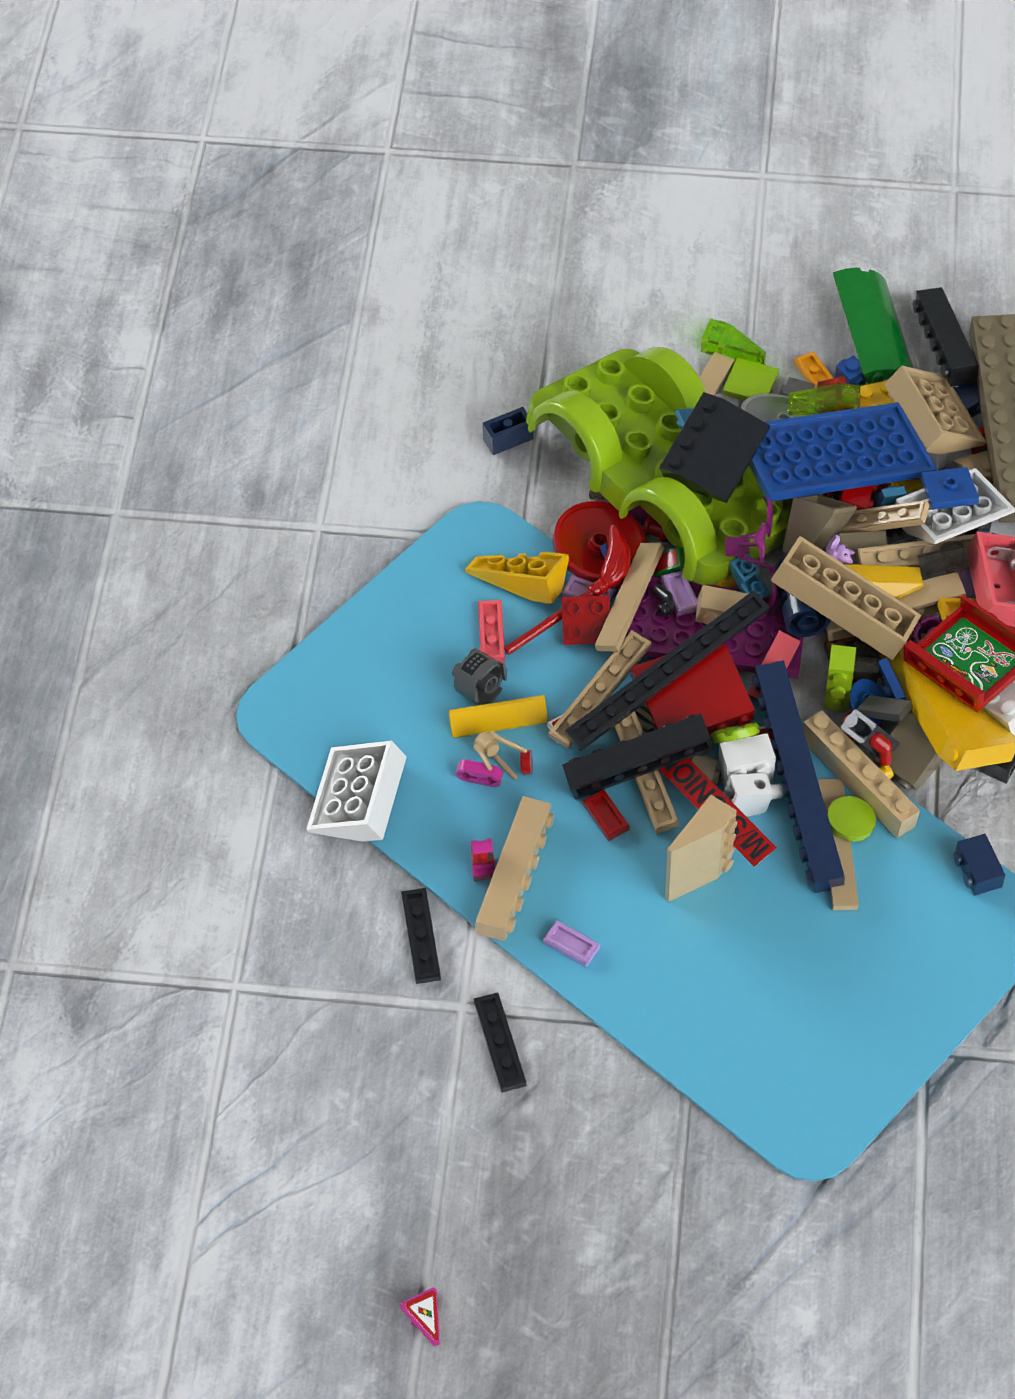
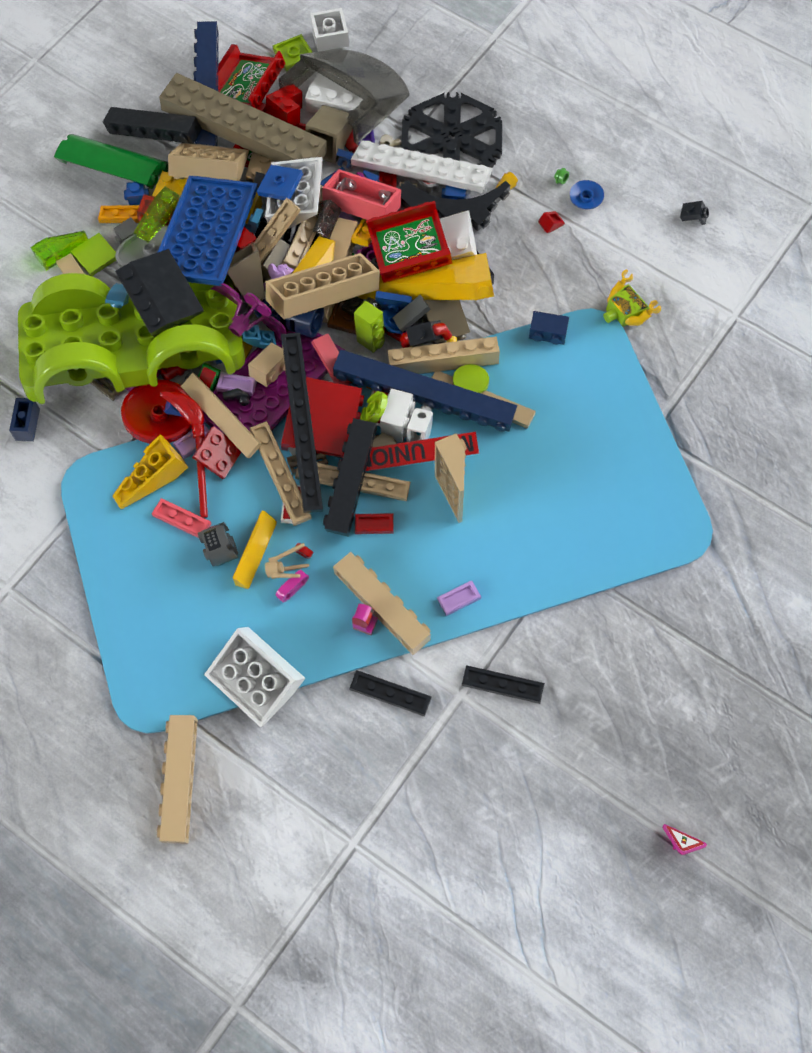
camera: 60 degrees left, 10 degrees up
(206, 784) = (178, 780): none -> tan brick

